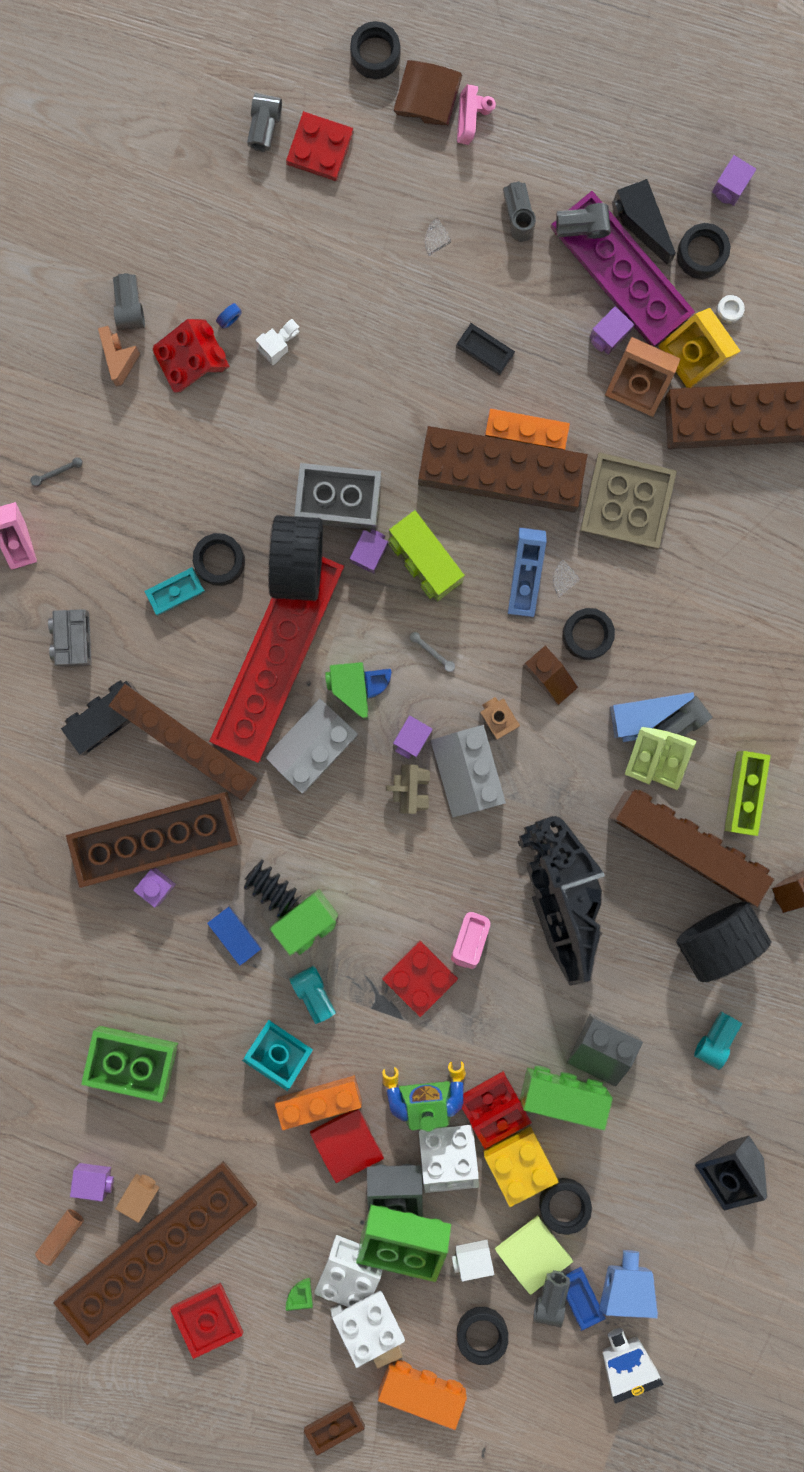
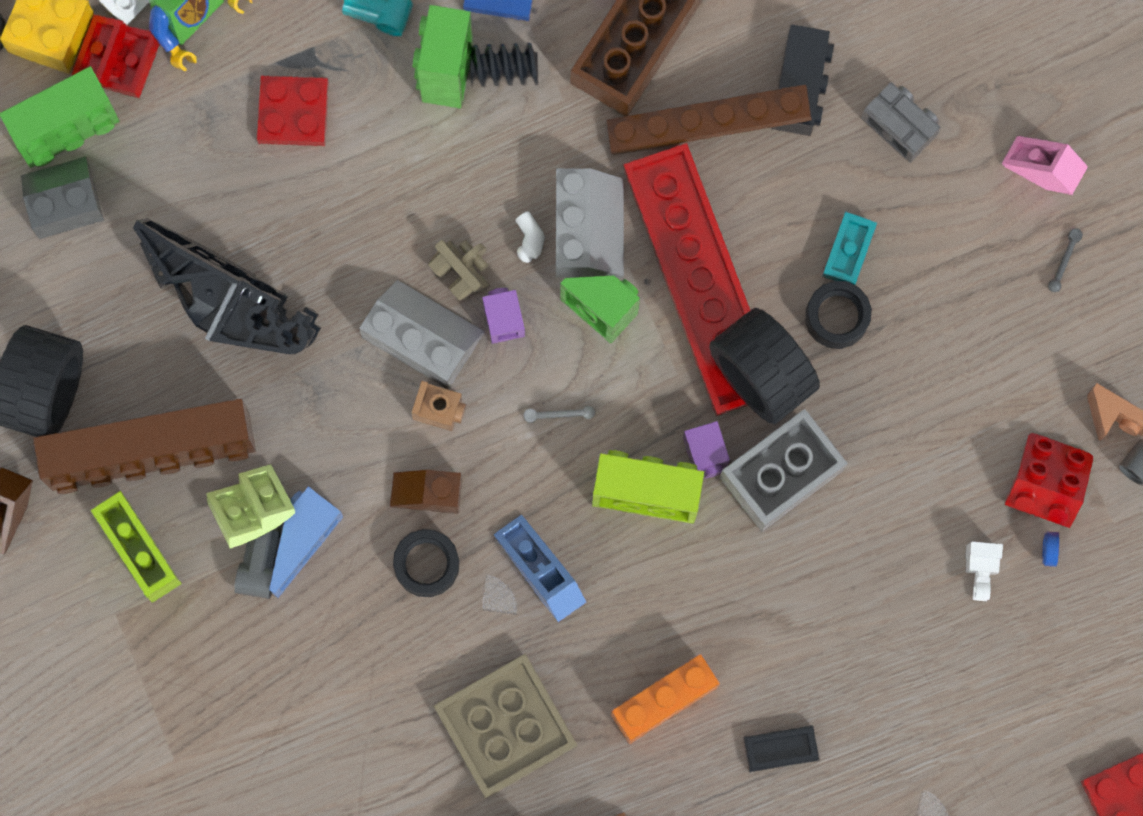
camera: 135 degrees right, 10 degrees down
(351, 768) = (533, 238): none -> white arm
(377, 681) = (585, 339): blue tile -> none
(470, 940) = (277, 181): bright pink piece -> none
(502, 469) = (654, 641): reddish brown brick -> none

